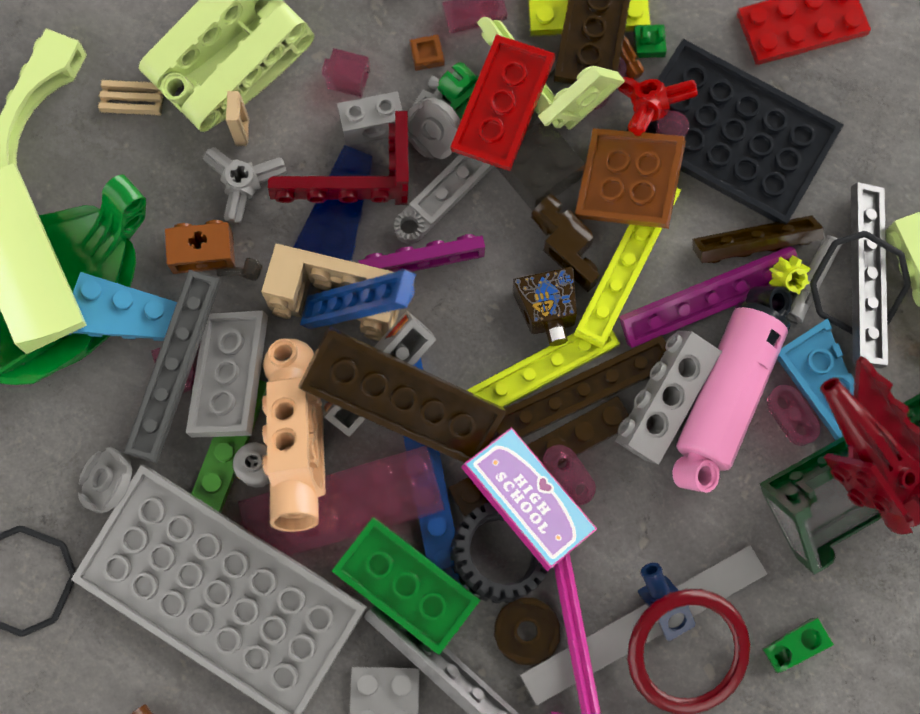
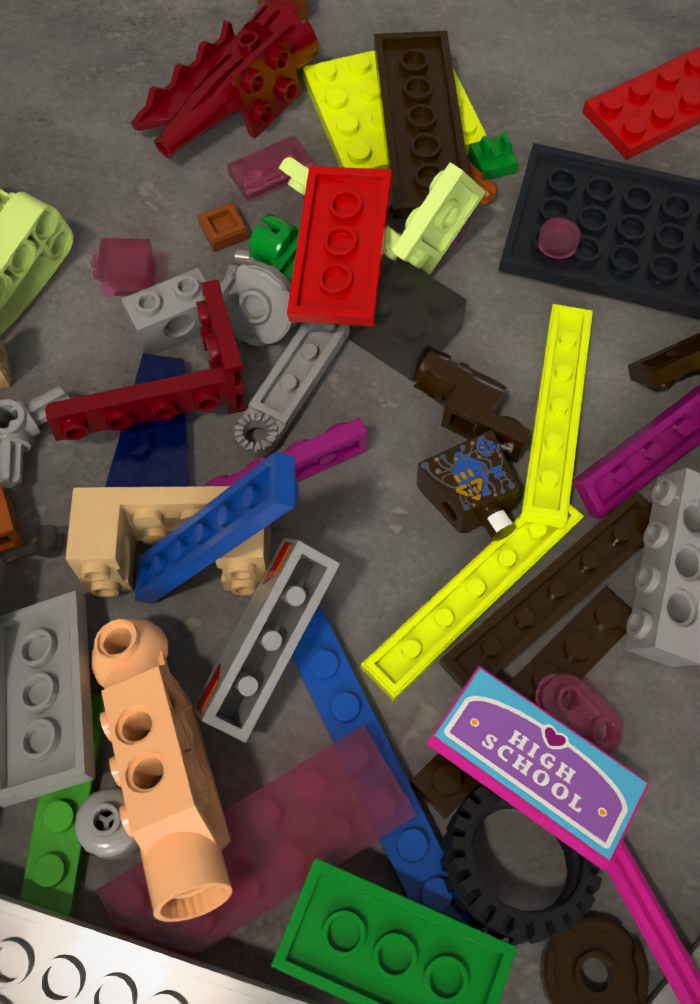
camera: 15 degrees left, 10 degrees down
(400, 396) = (305, 660): dark brown plate -> none
(630, 178) = (529, 307): dark orange plate -> none
(652, 100) = (527, 206): red bush -> none

